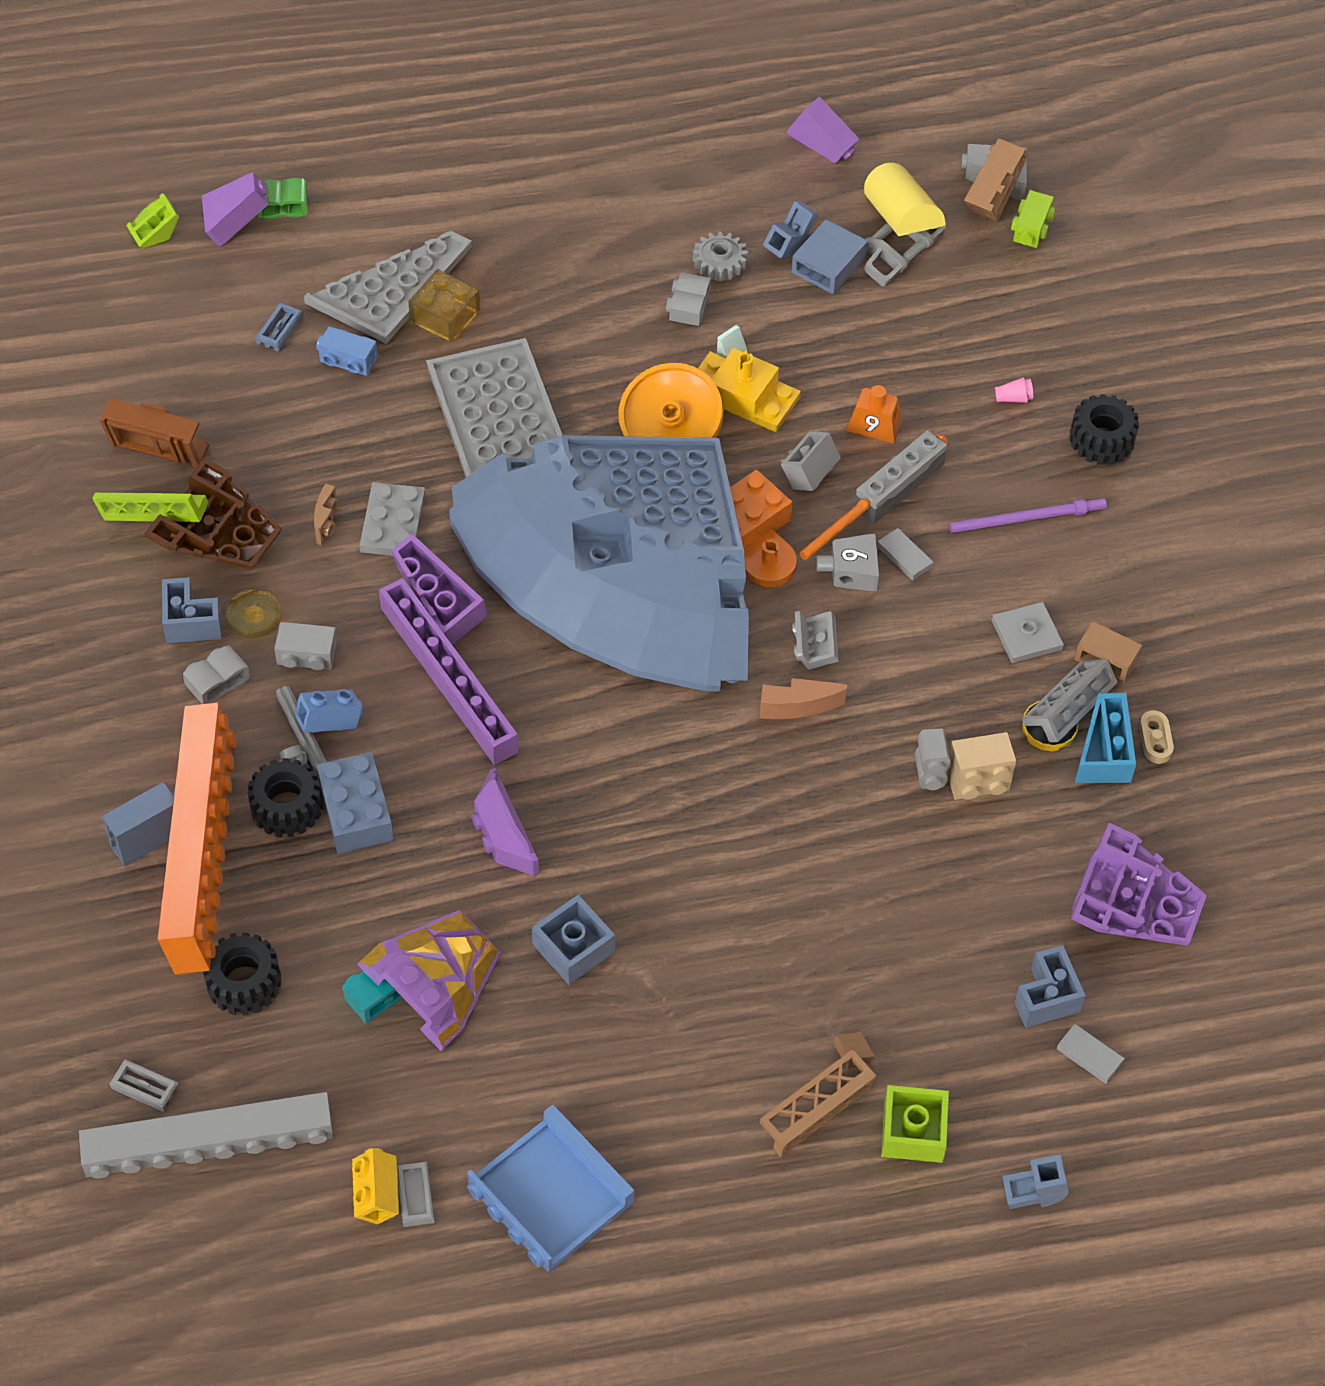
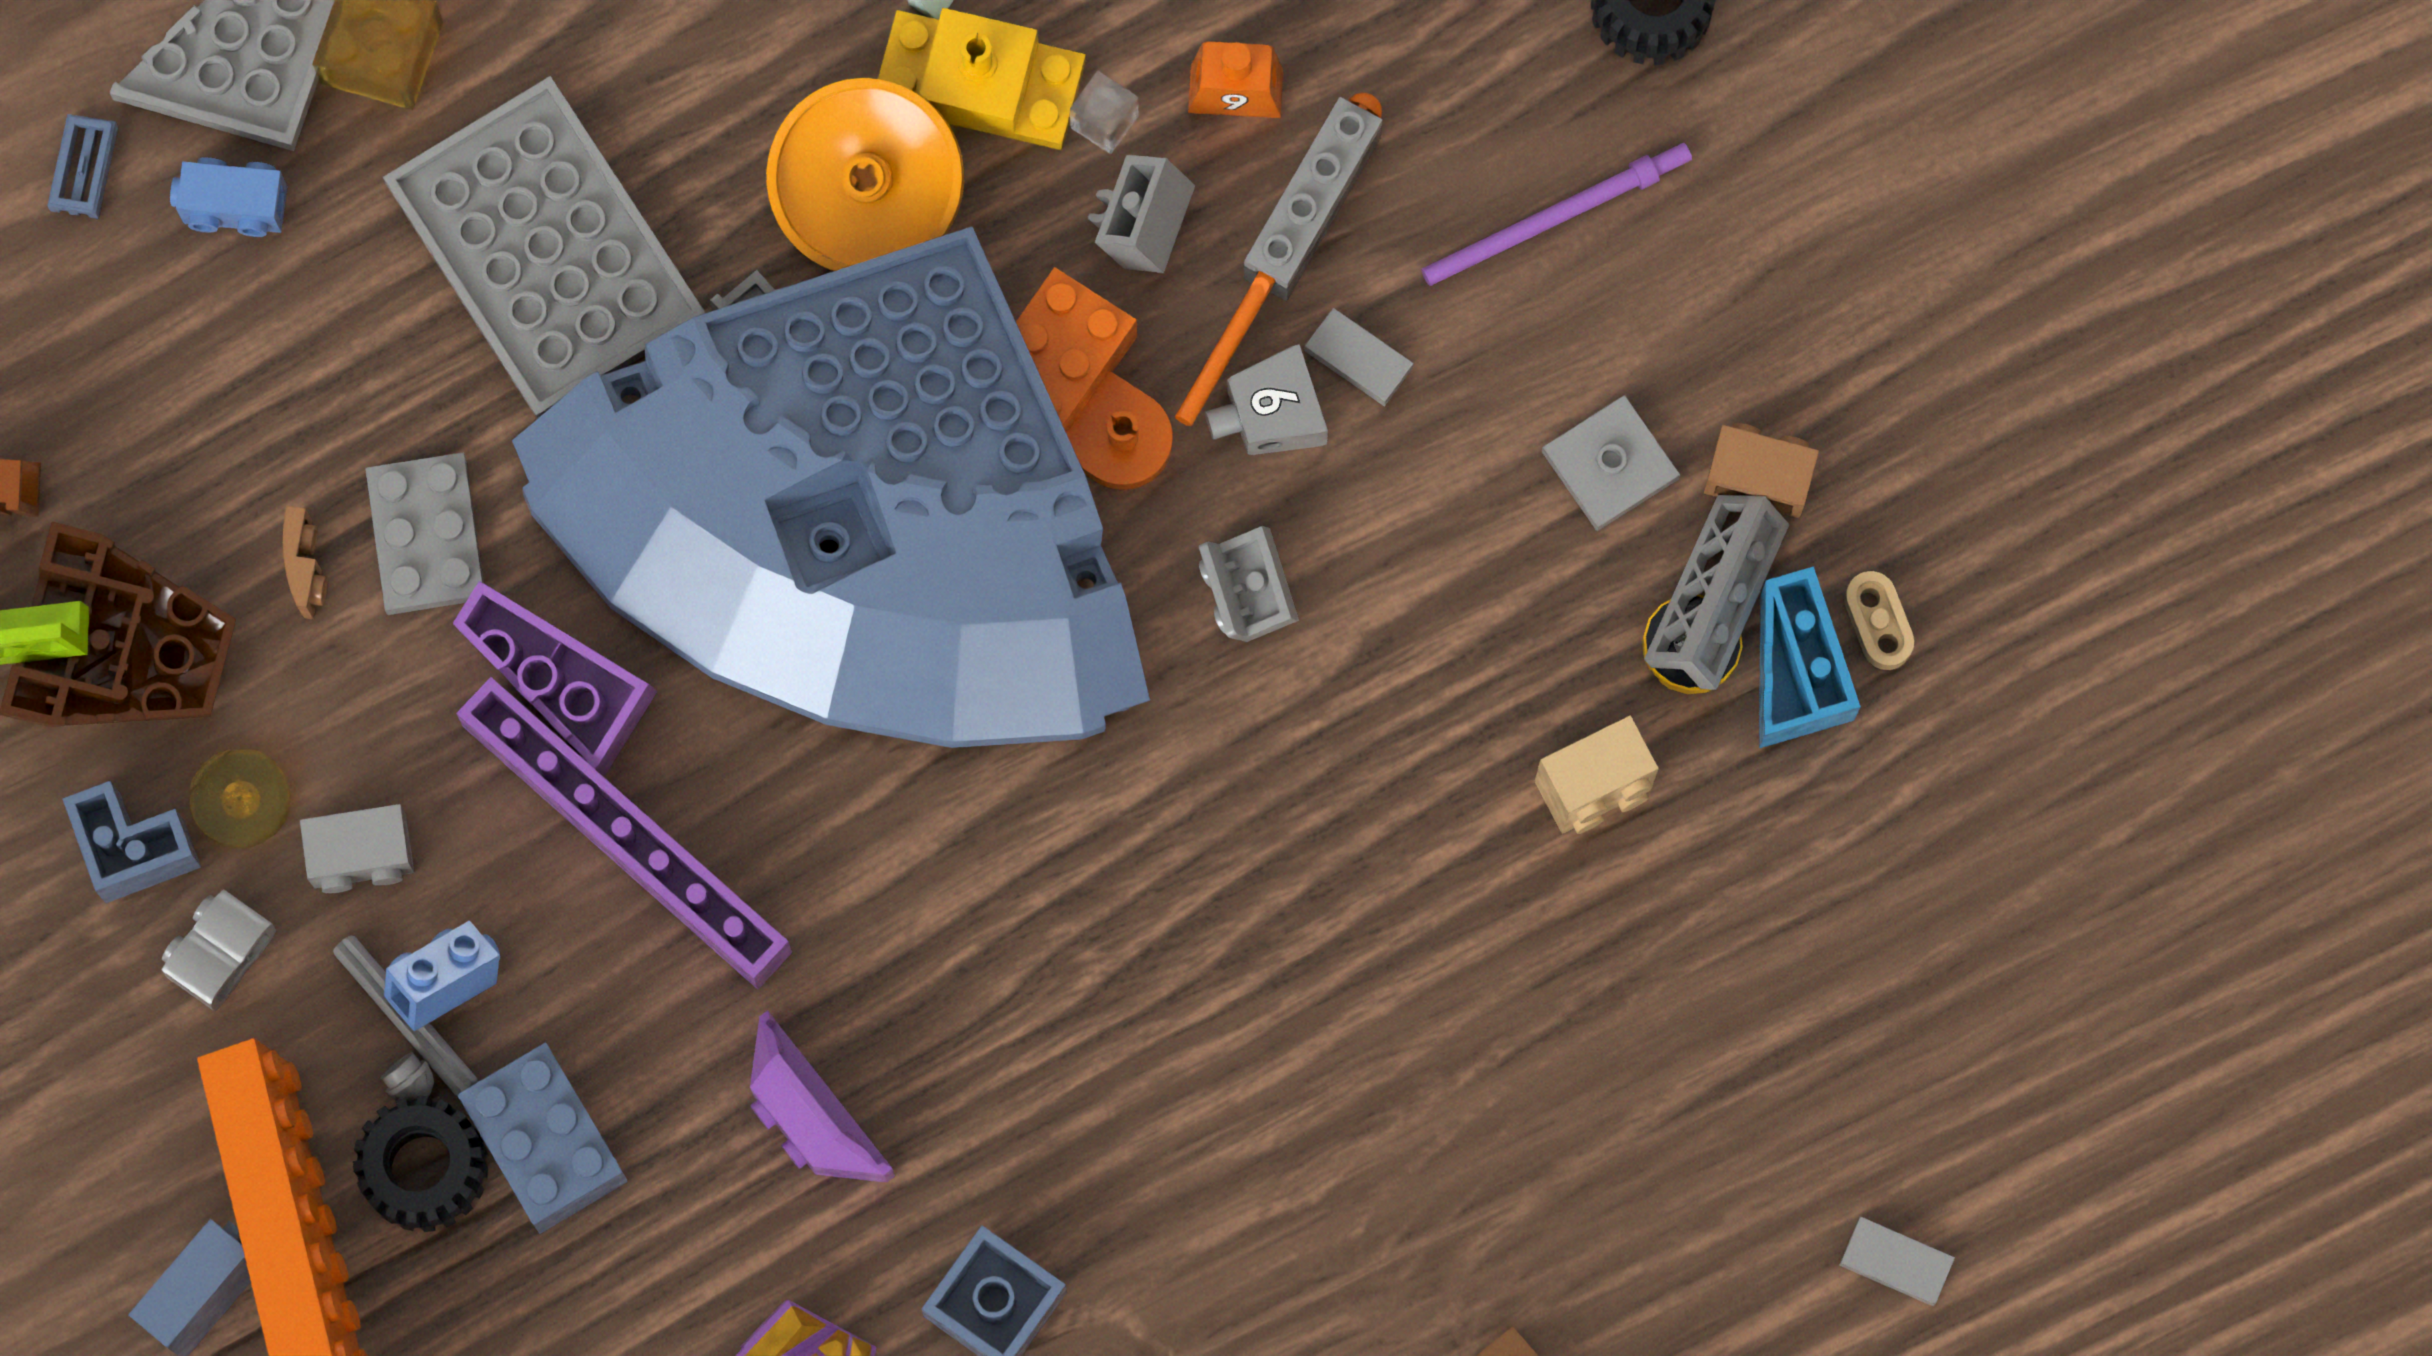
camera: 15 degrees left, 20 degrees up
(801, 699) = (1253, 715): nougat slope -> none
(802, 415) = (1104, 112): none -> clear brick
(932, 759) = (1511, 785): light grey brick -> none
(1054, 992) = (1821, 1170): sand blue brick -> none
(1134, 893) = (1908, 951): medium lavender wedge -> none

